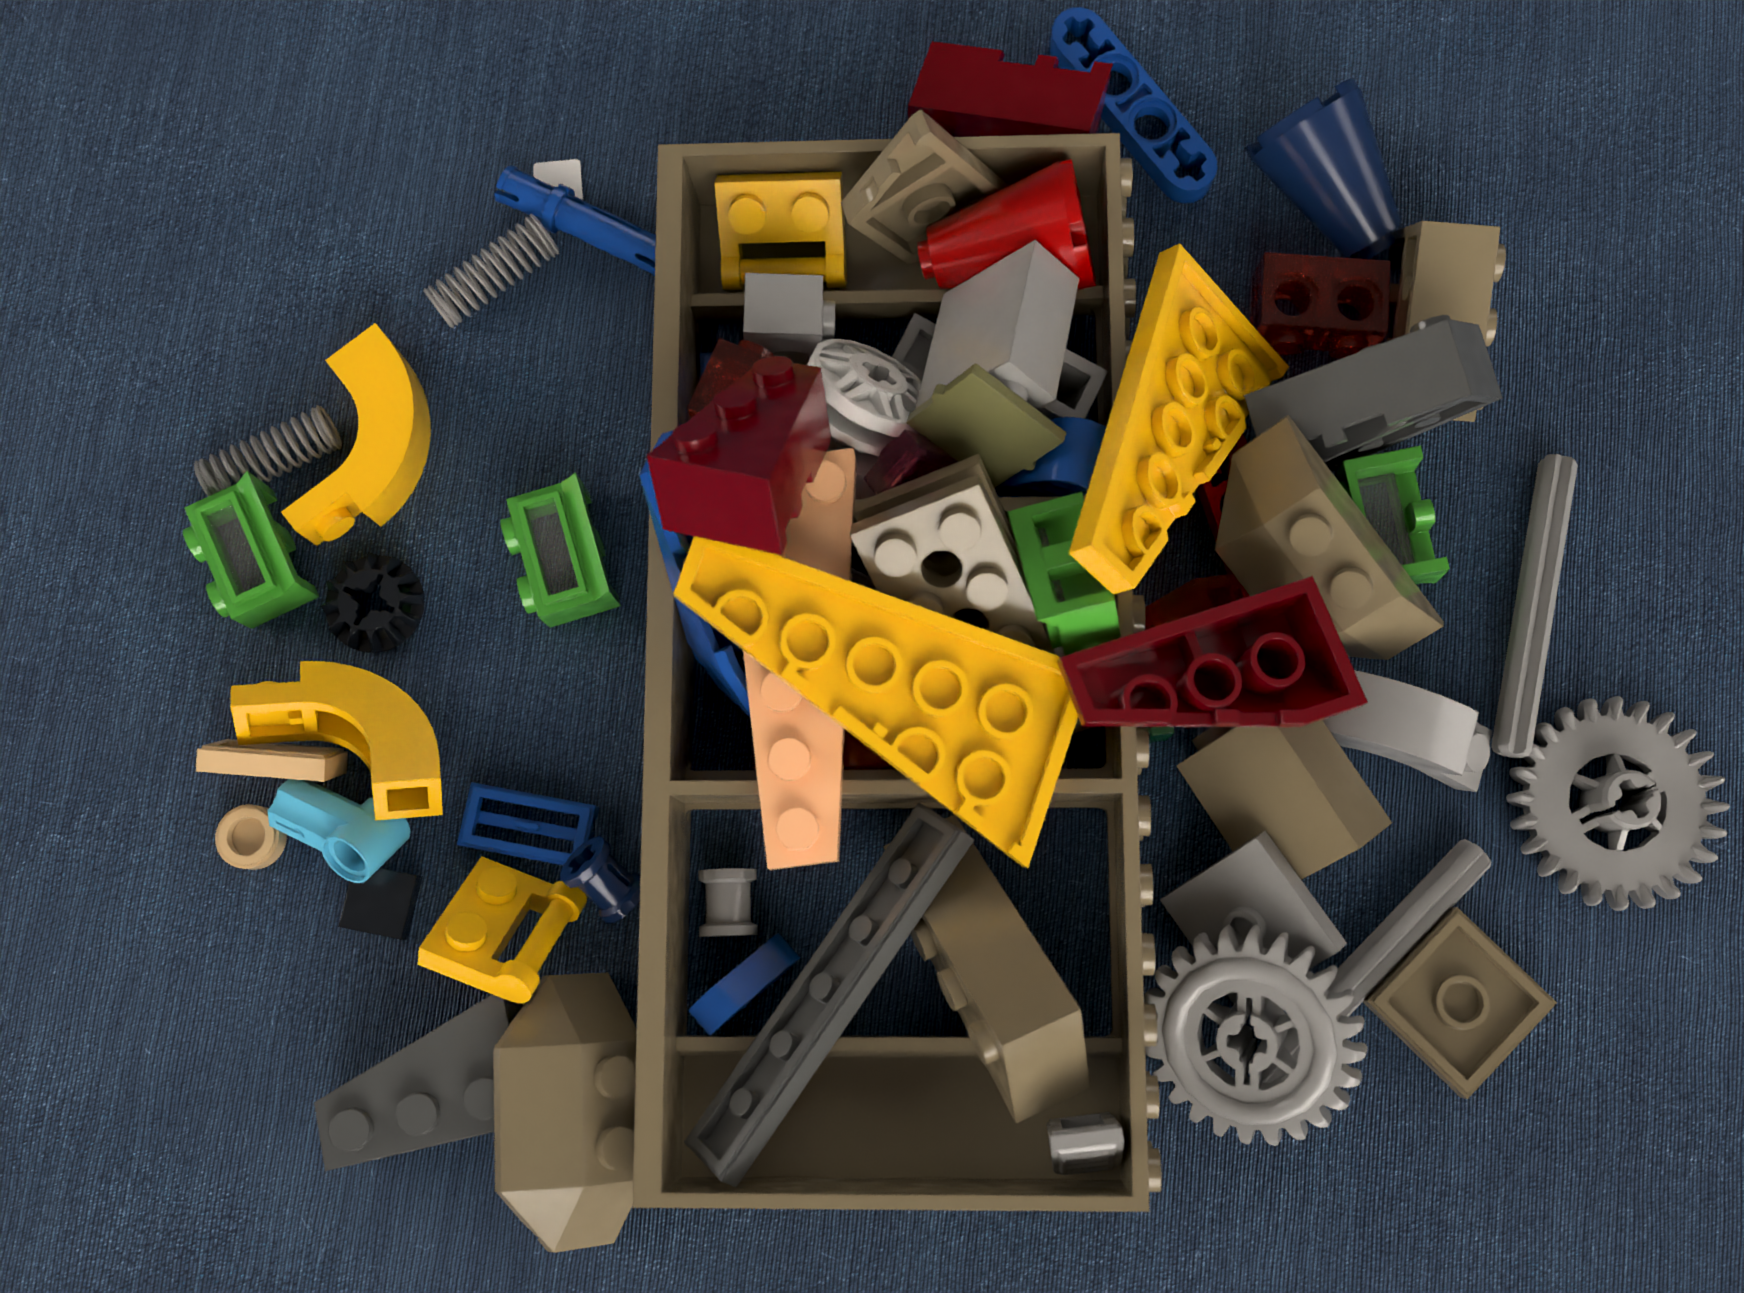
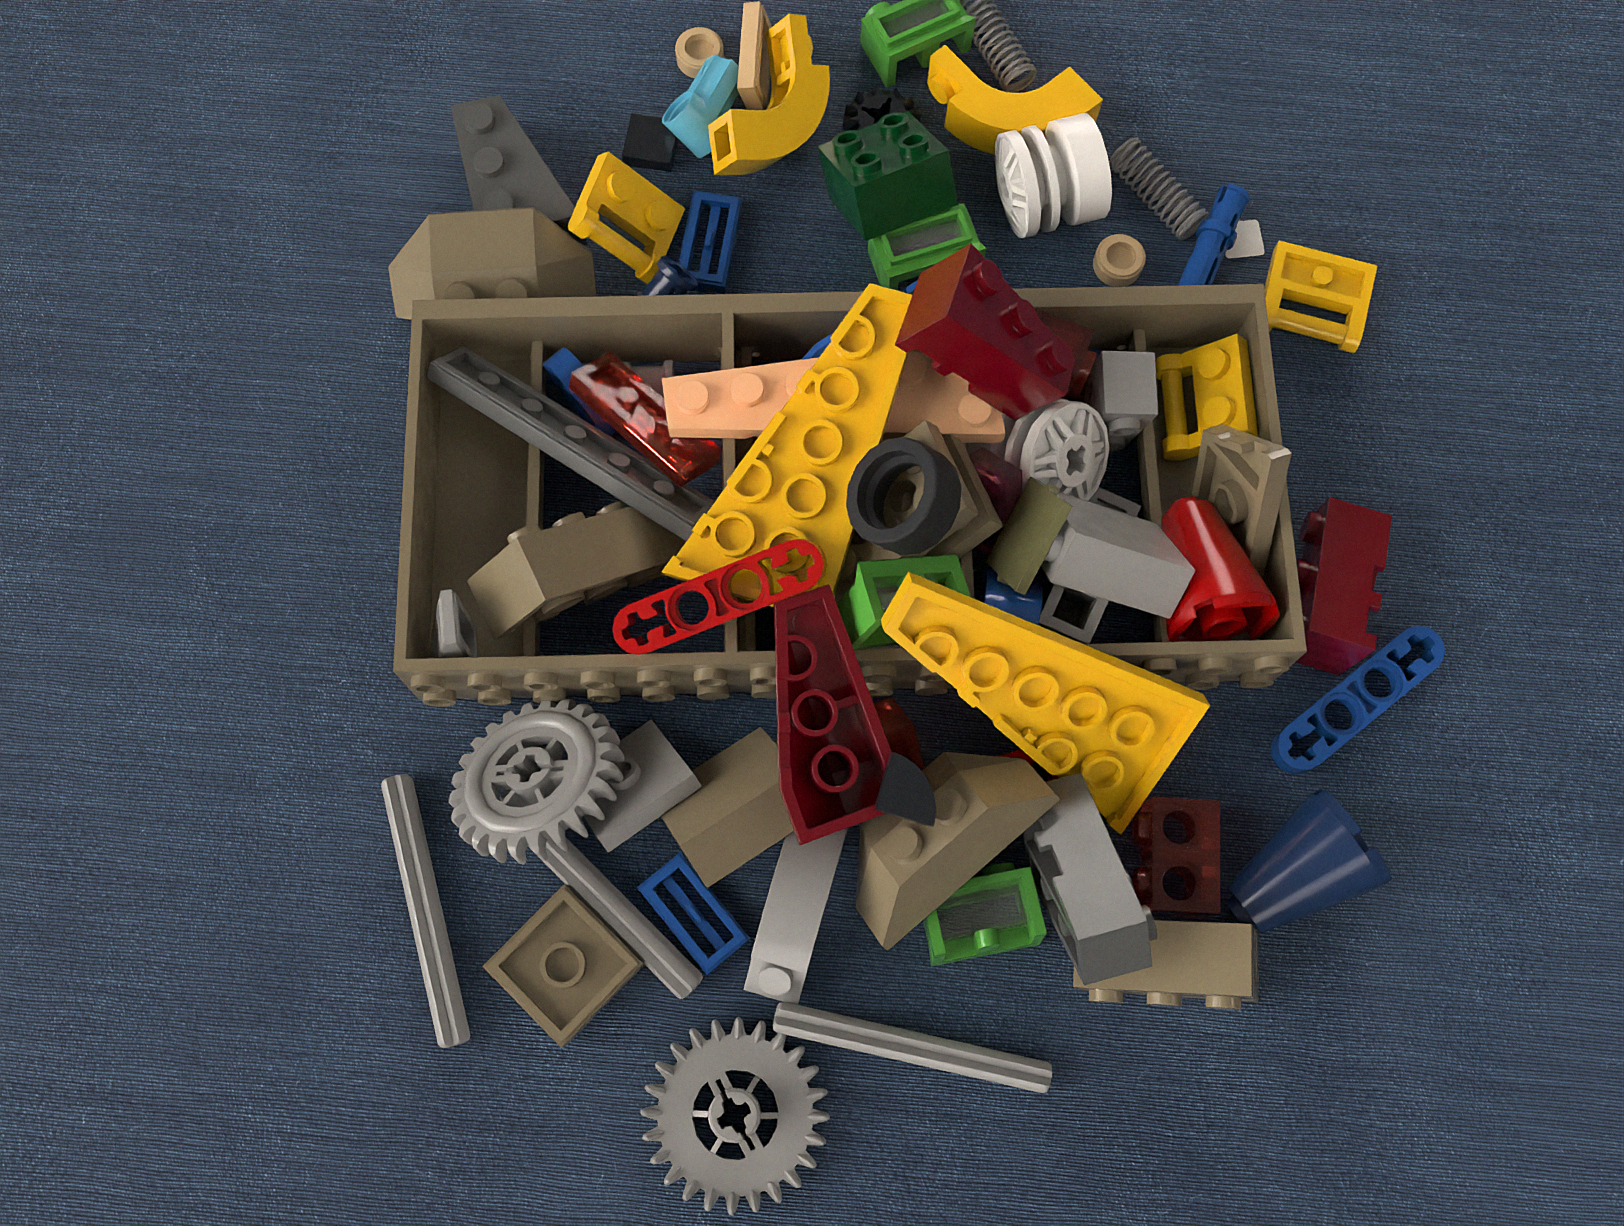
camera: 80 degrees right, 5 degrees down
(464, 590) = (887, 174): none -> dark green brick
(477, 387) = (1053, 175): none -> white wheel
(581, 325) = (1119, 260): none -> tan tile
(626, 93) = (1321, 282): none -> yellow plate
(797, 906) = (641, 418): none -> clear red plate
(954, 608) = (871, 484): none -> black tyre
(1077, 789) = (720, 599): none -> red beam
(1307, 579) = (906, 792): none -> black tile
(1347, 884) = (723, 950): none -> blue tile
(1394, 1174) = (425, 911): none -> light grey axle

